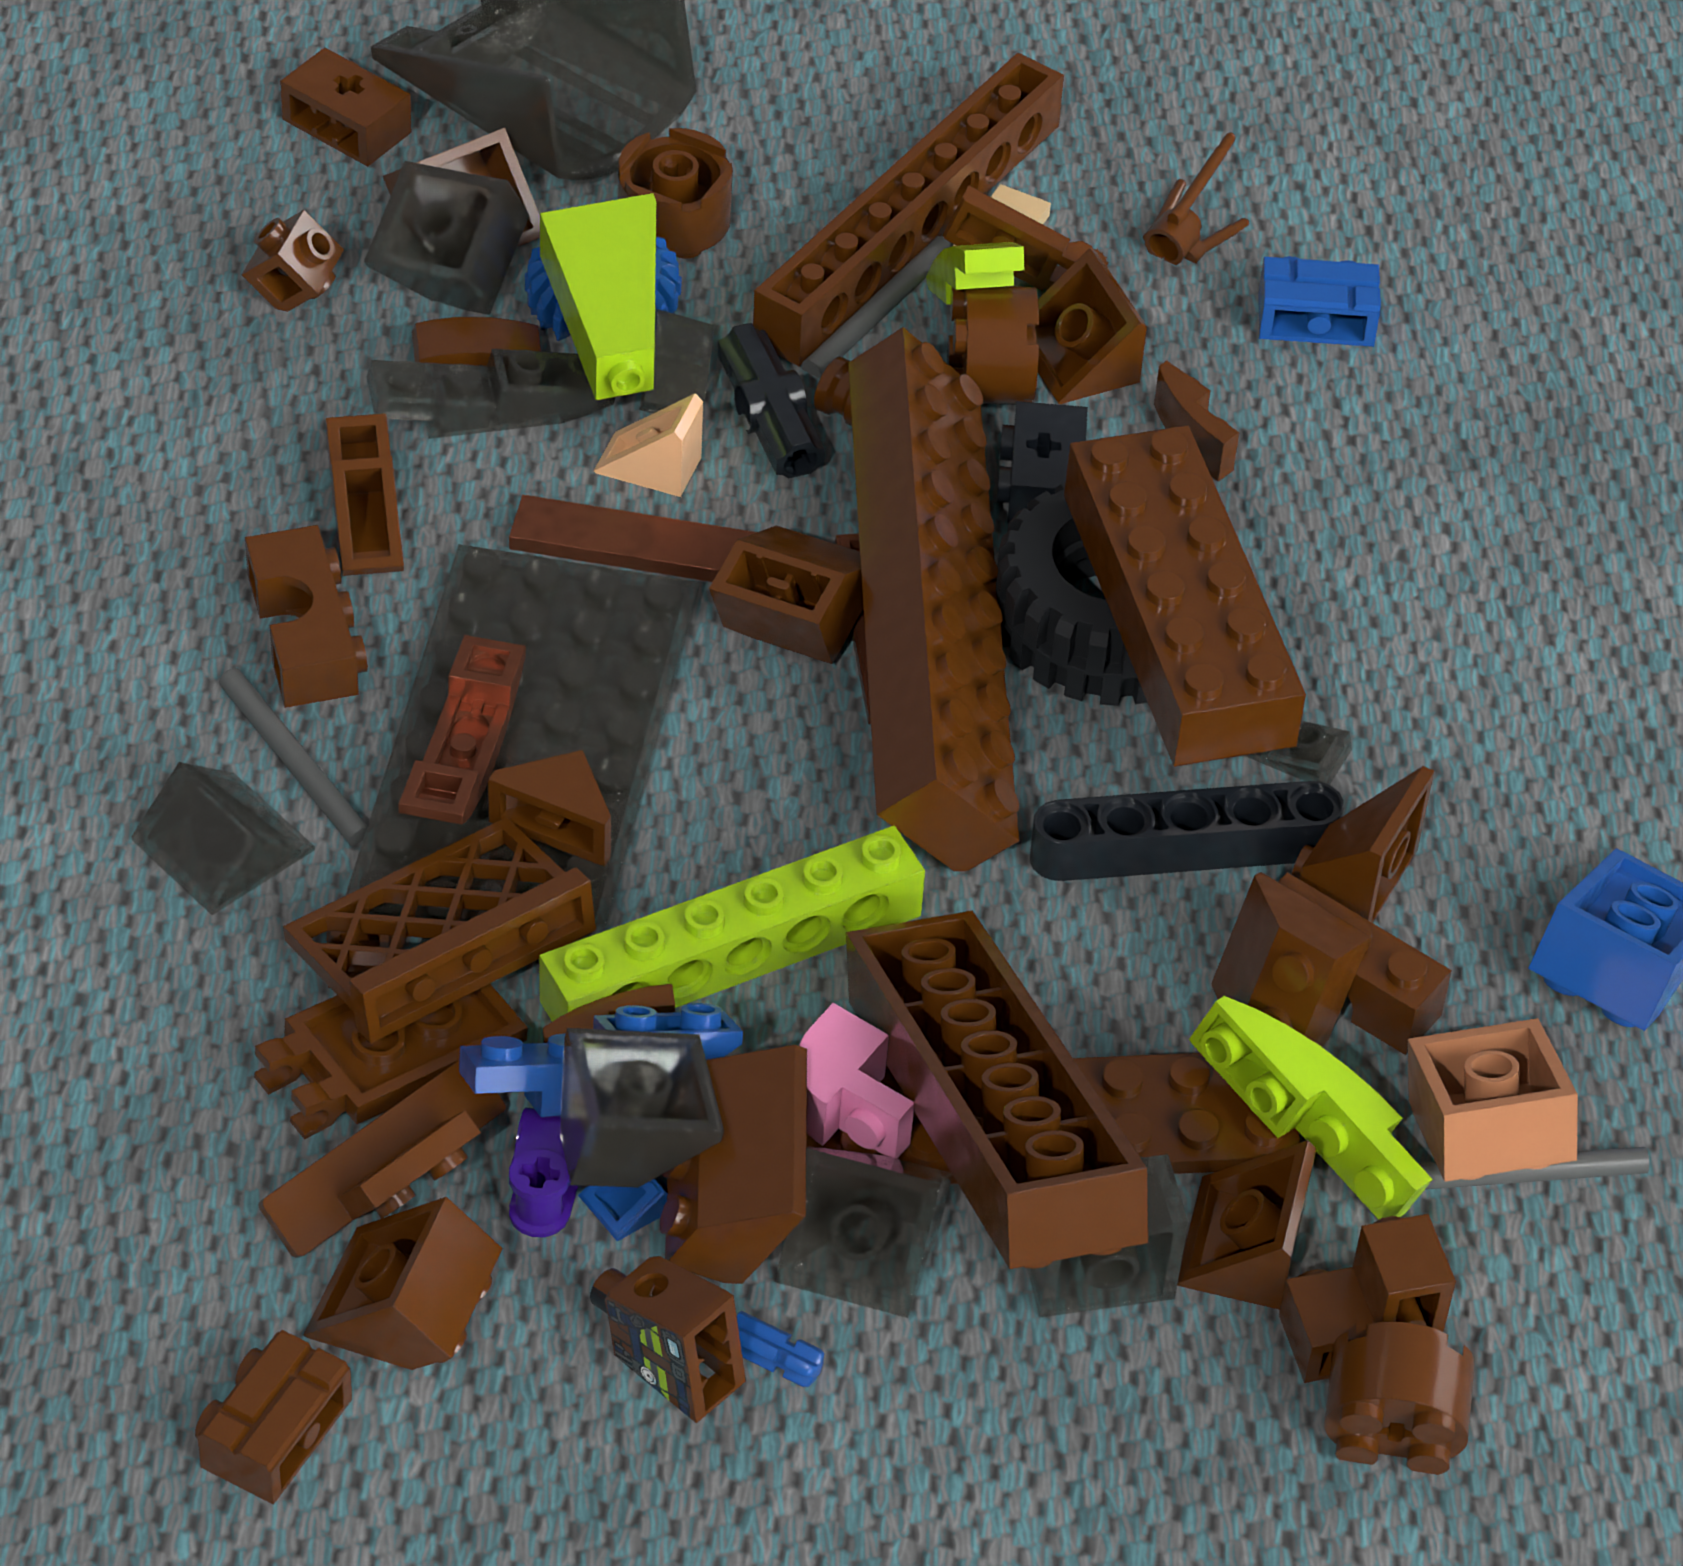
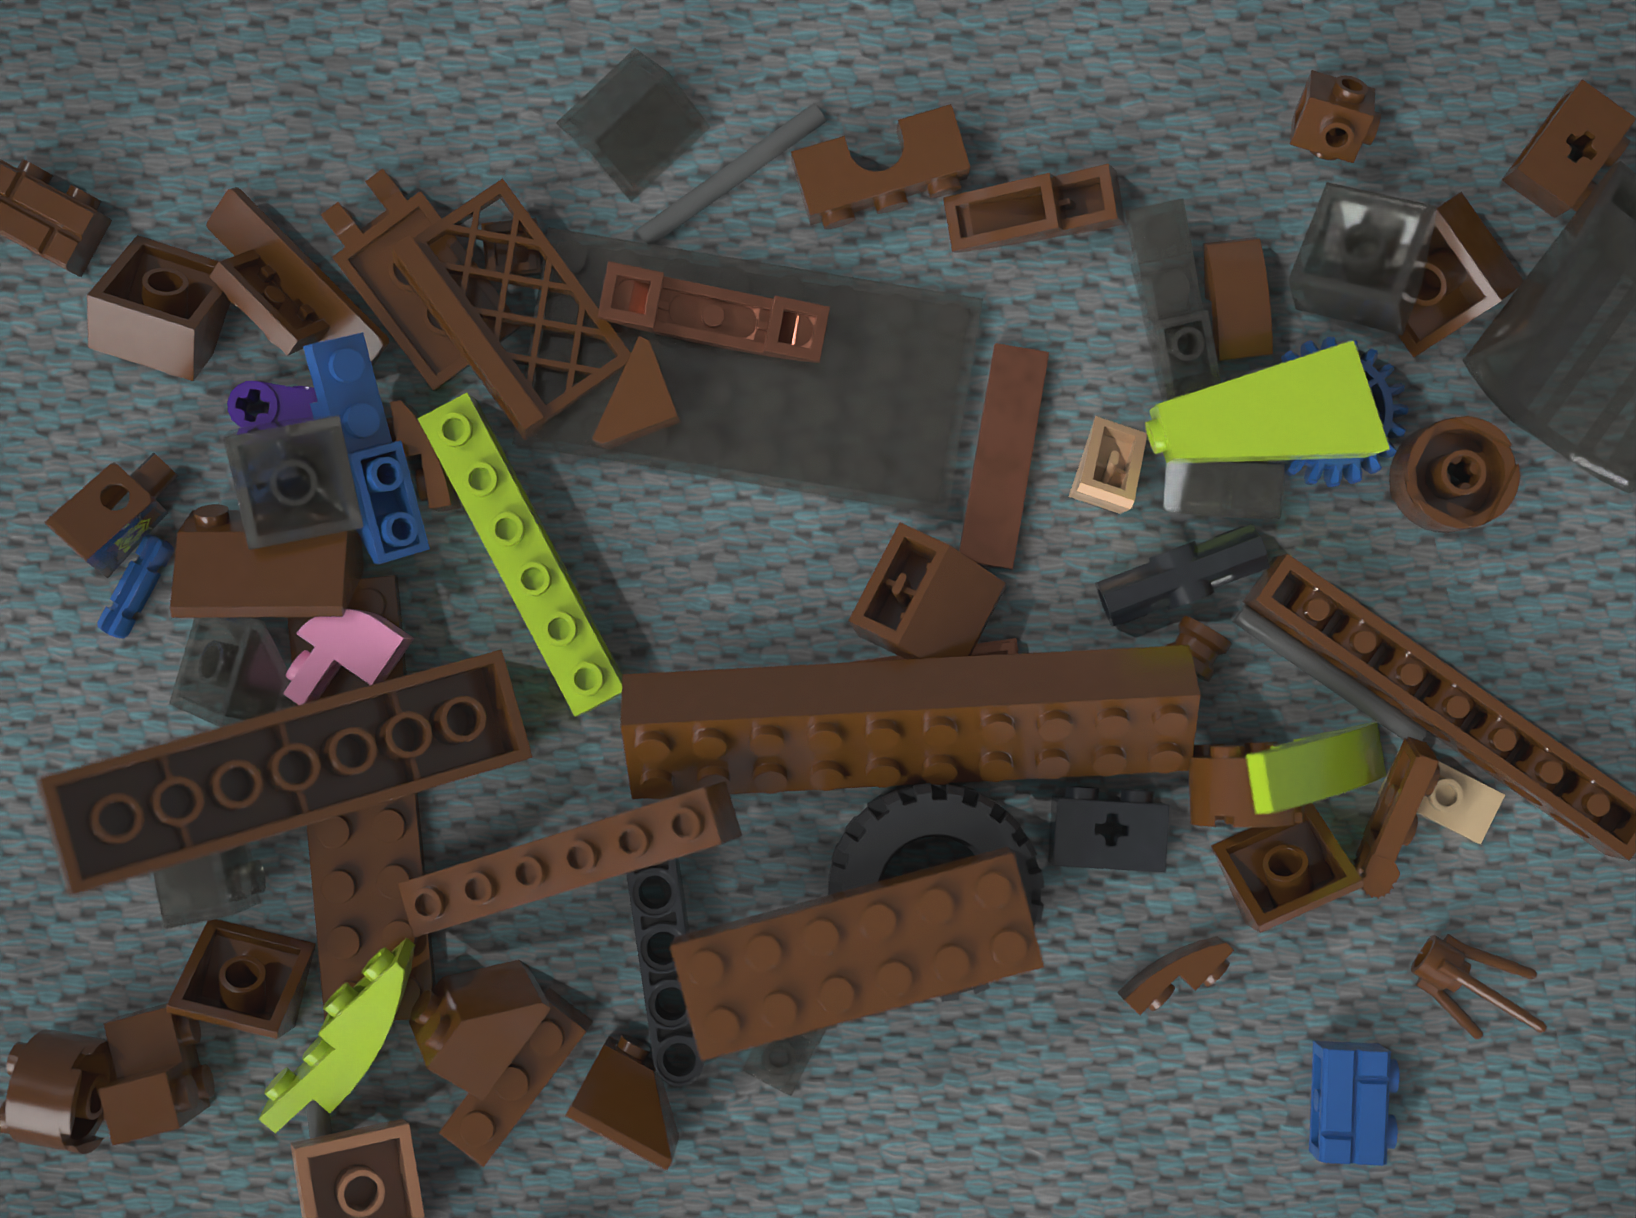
camera: 95 degrees right, 40 degrees up
(1091, 871) = (570, 859): none -> reddish brown brick

